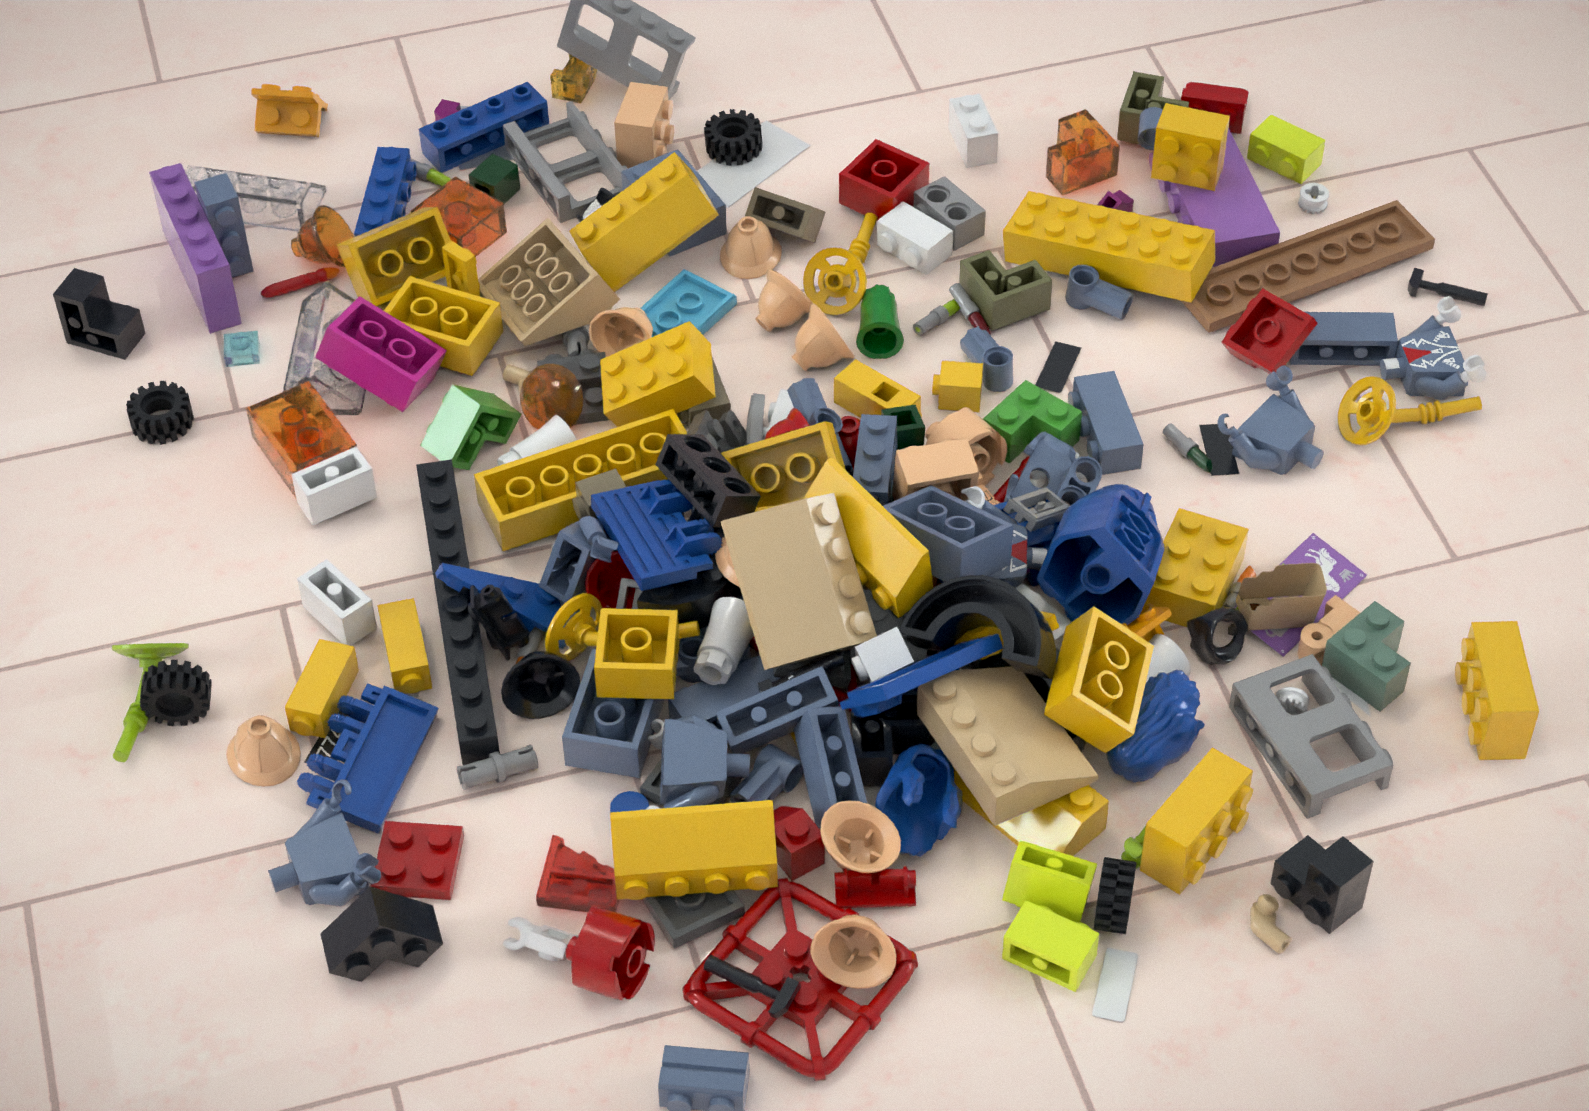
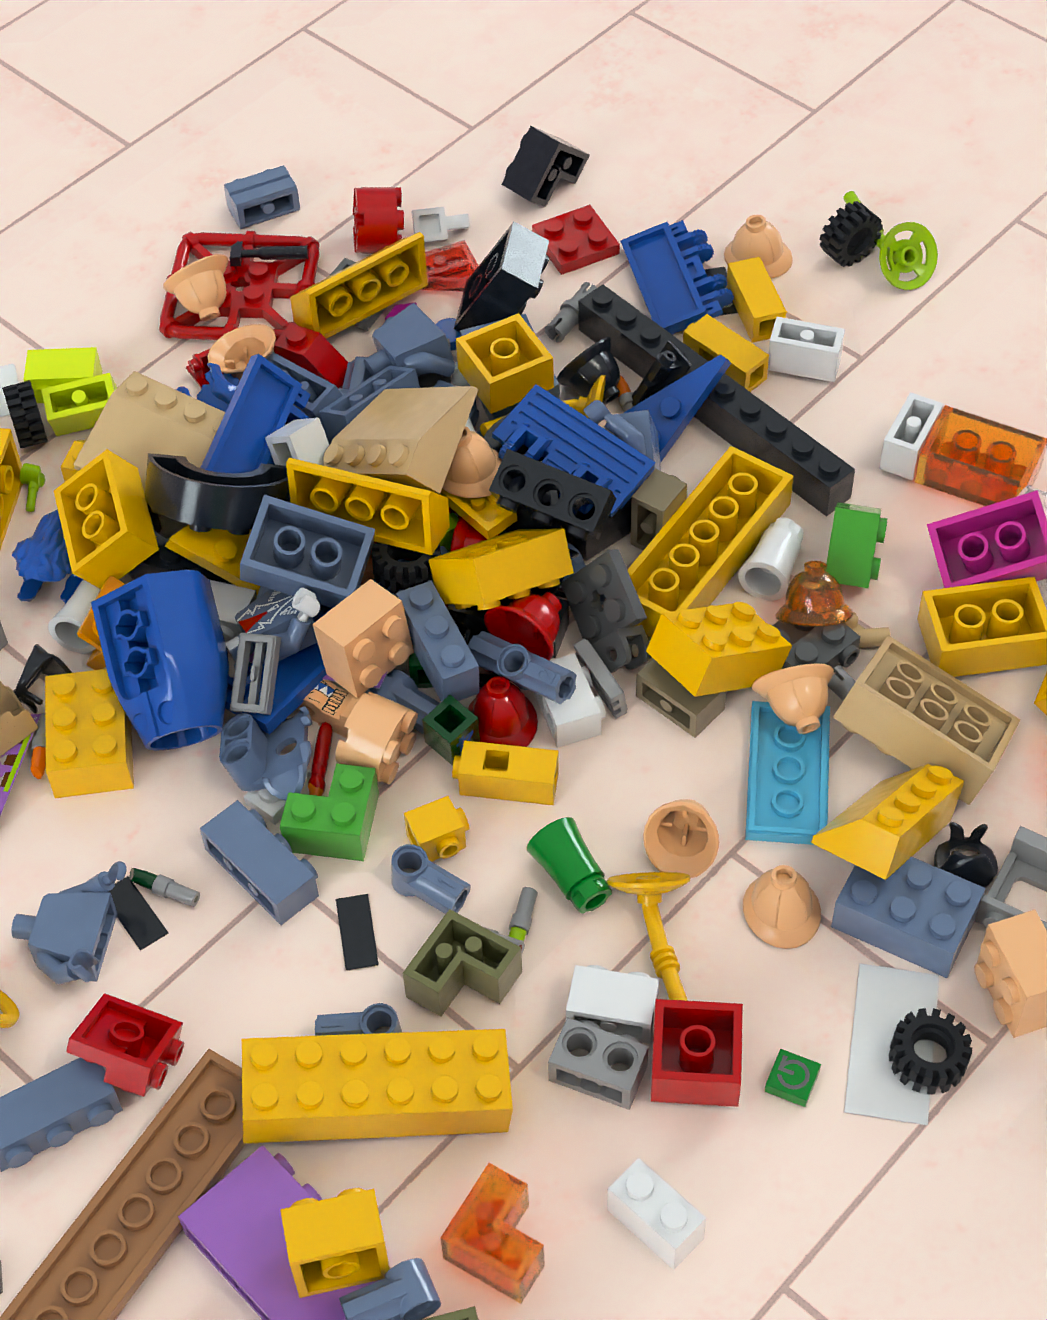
camera: 150 degrees right, 5 degrees up
(326, 858) = (629, 197): sand blue torso -> none
(460, 268) = (1018, 680): yellow plate -> none
(562, 769) = (504, 279): none -> black brick
(785, 214) = (771, 946): dark tan brick -> none
(819, 342) = (603, 806): light nougat hat -> none
(826, 165) = (792, 1077): none -> green tile
(1118, 201) = (412, 1189): magenta piece -> none

